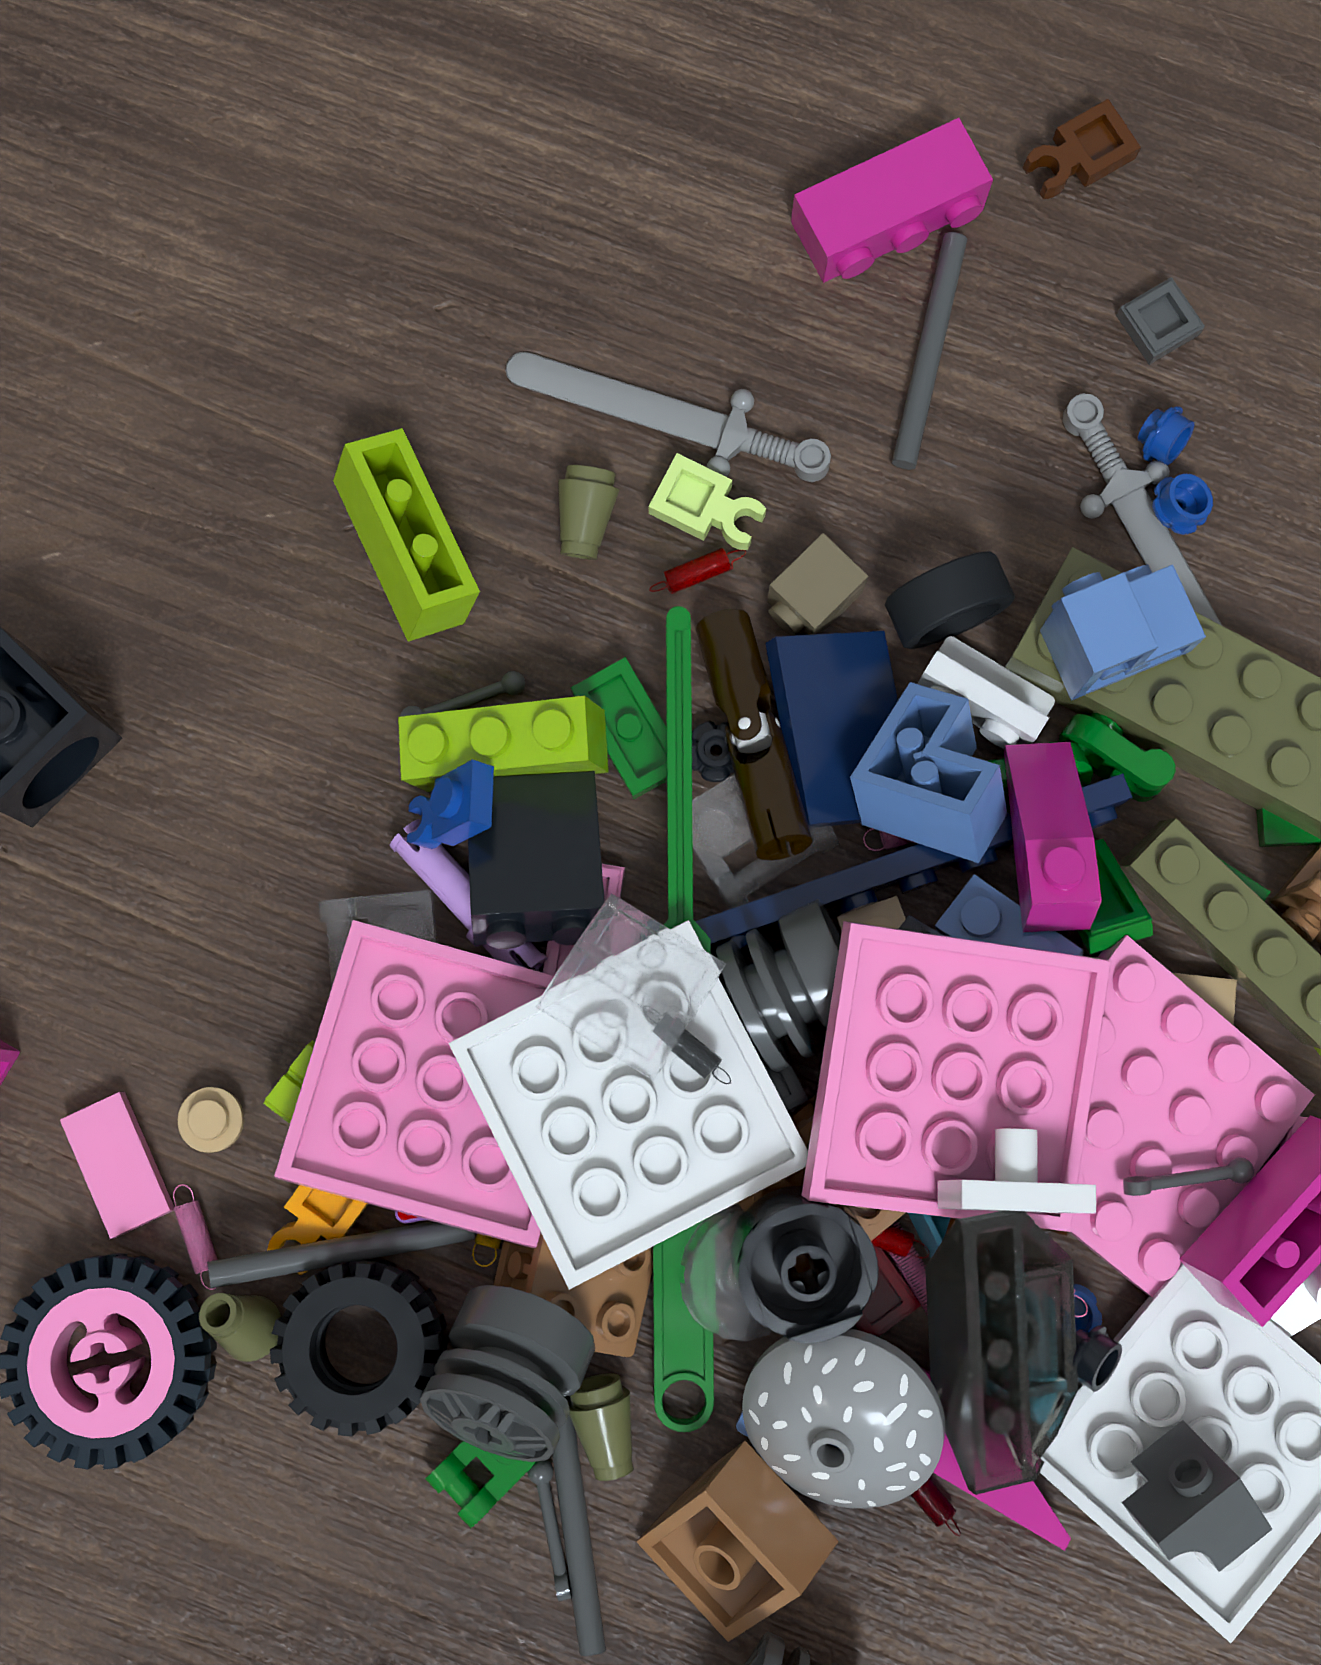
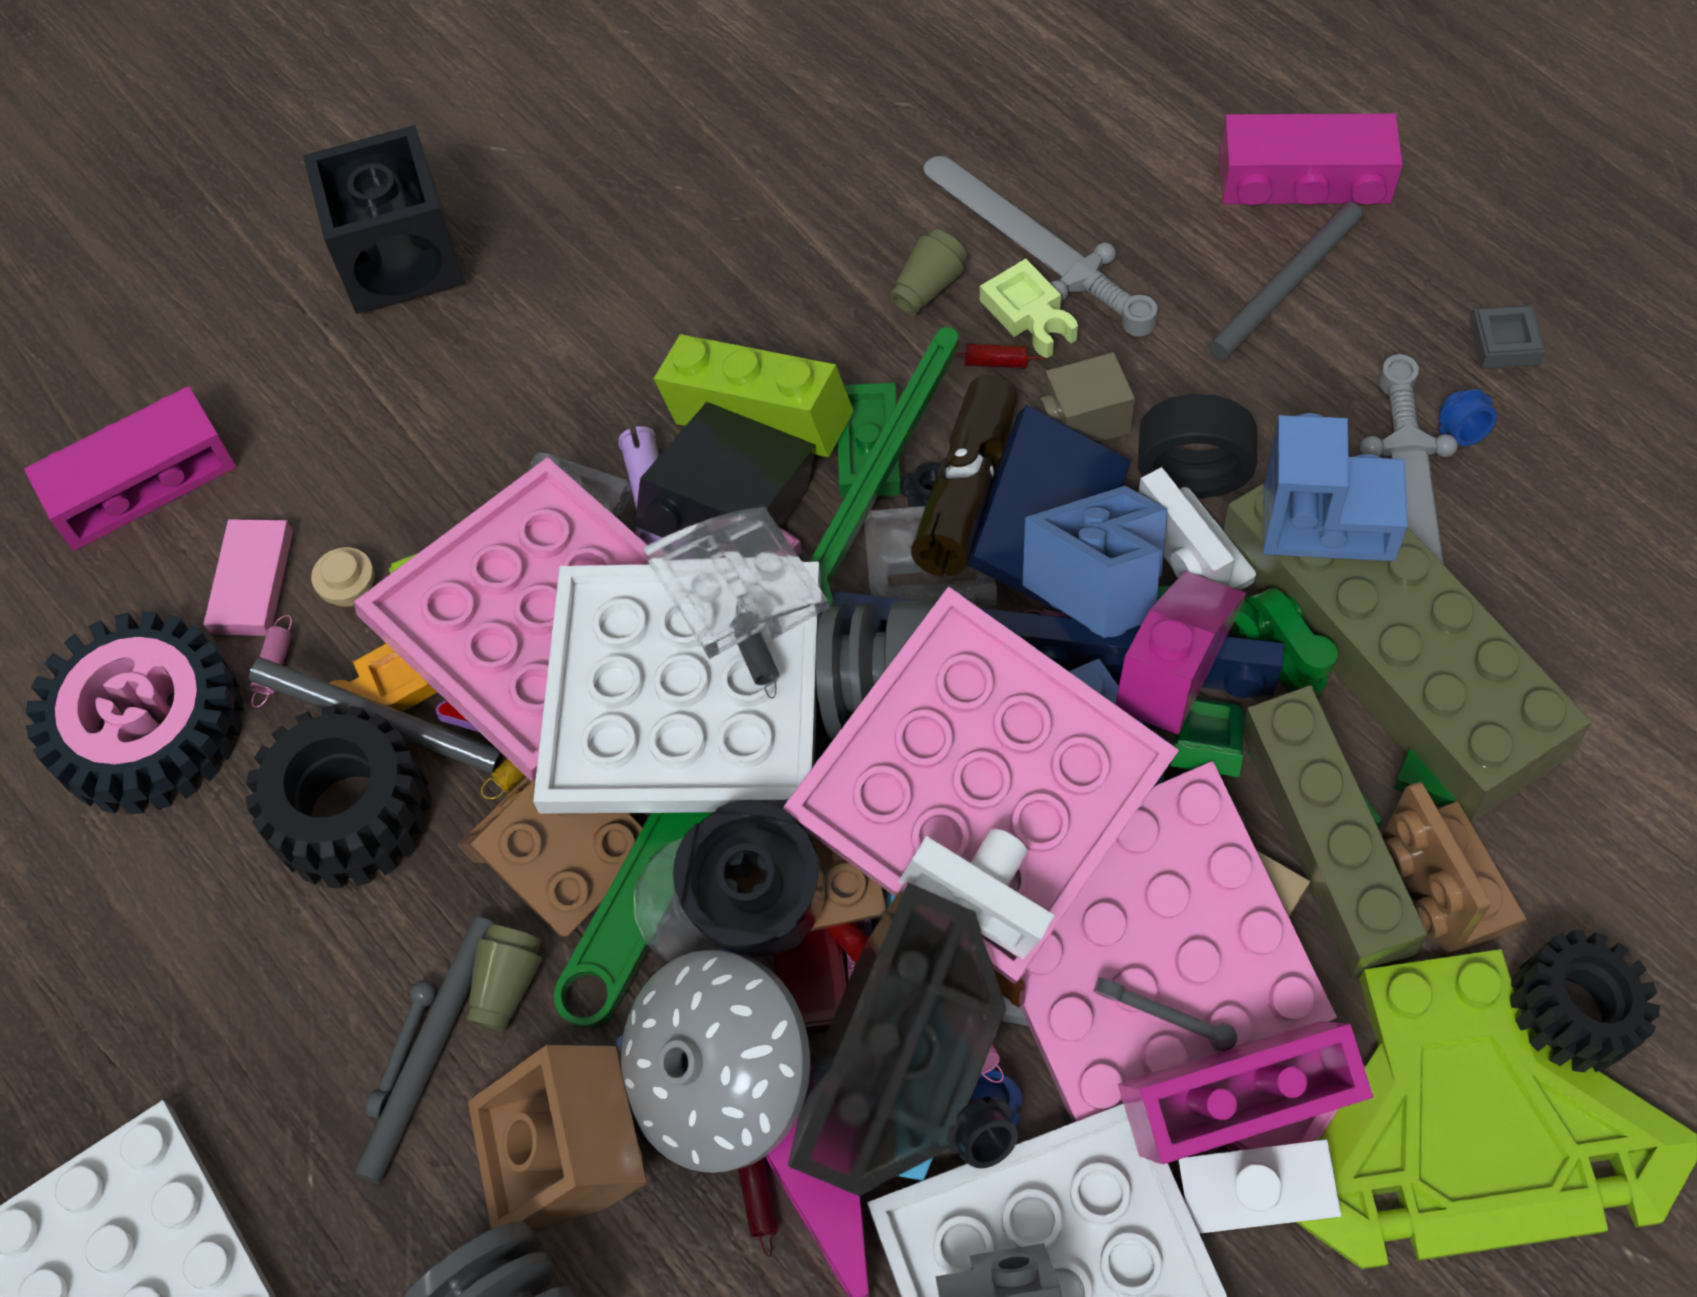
camera: 30 degrees right, 20 degrees down
(241, 1324) = (249, 722): olive cone -> none
(405, 534) = (770, 224): lime brick -> none
(457, 806) = (680, 408): blue plate -> none
(476, 1501) = (407, 953): green plate -> none
(509, 1373) = (442, 863): dark grey wheel -> none
(1086, 146) = (1501, 184): reddish brown plate -> none
(1182, 503) = (1455, 472): blue plate -> none

